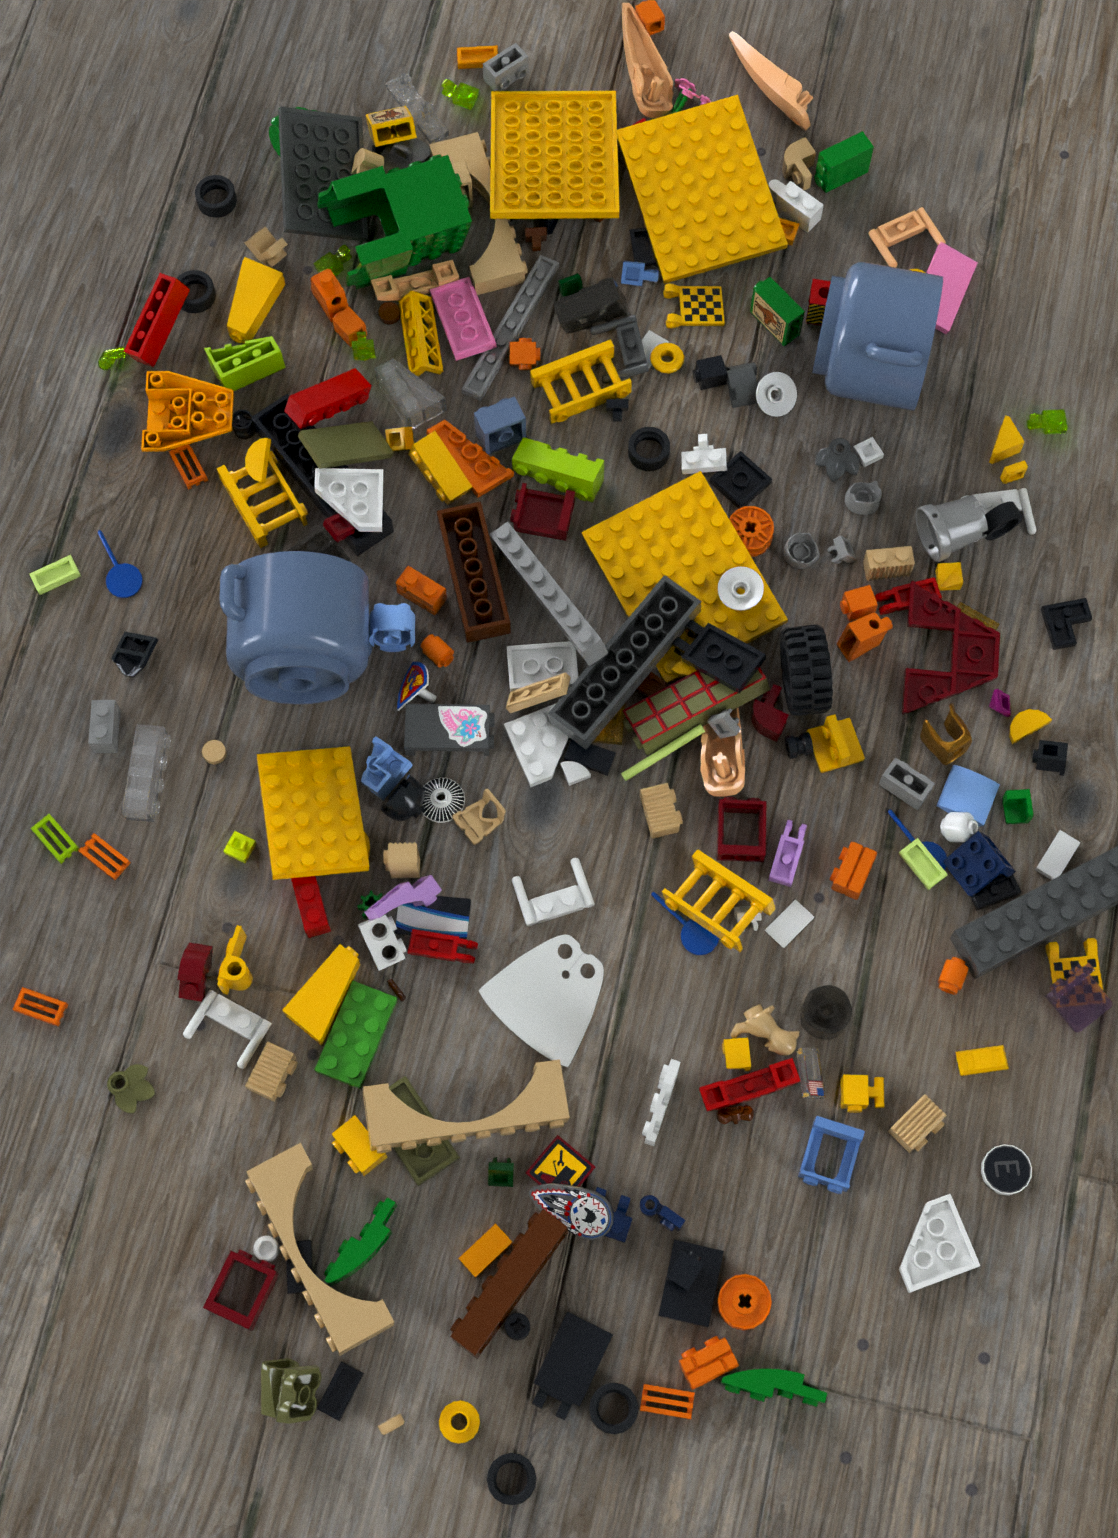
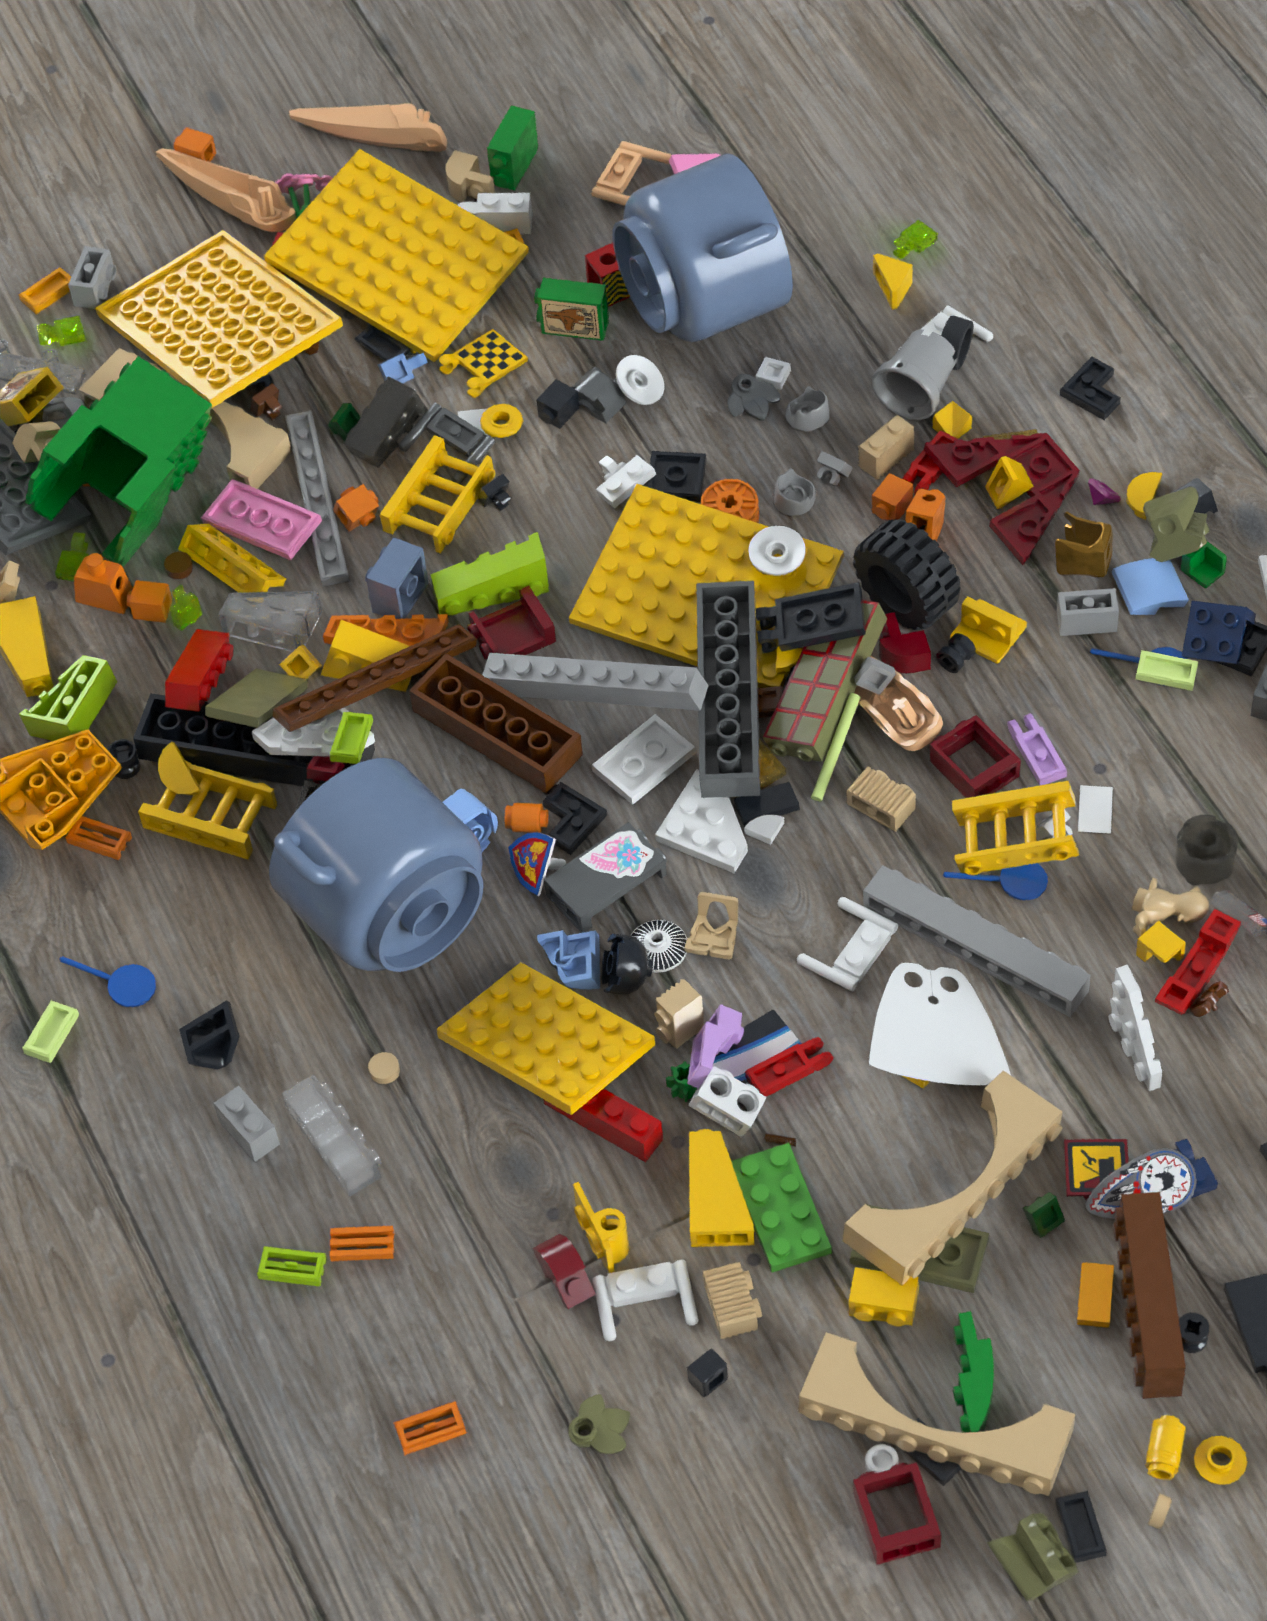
camera: 35 degrees left, 15 degrees down
(216, 1107) = (707, 1373): none -> black slope
(239, 847) = (495, 1132): neon yellow tile -> none
(364, 519) = (351, 737): none -> lime tile
(395, 289) = (169, 535): light nougat slope -> none
(420, 486) = (373, 678): none -> reddish brown tile
(421, 590) = (458, 772): orange brick -> none
(432, 1386) = (1165, 1447): none -> yellow head
(472, 675) = (578, 816): none -> black tile
(538, 692) = (667, 776): tan tile -> none
(629, 956) = (977, 940): none -> light grey brick
(649, 433) = (561, 523): black tyre -> none
(669, 1219) = (1234, 1130): dark blue plate -> none
(853, 871) = (1110, 719): orange brick -> none
(942, 650) = (1007, 482): none -> yellow slope
(958, 826) = (1169, 614): white head -> none
(1013, 472) = (925, 298): yellow tile -> none
(1018, 768) = (1175, 524): none -> olive piece

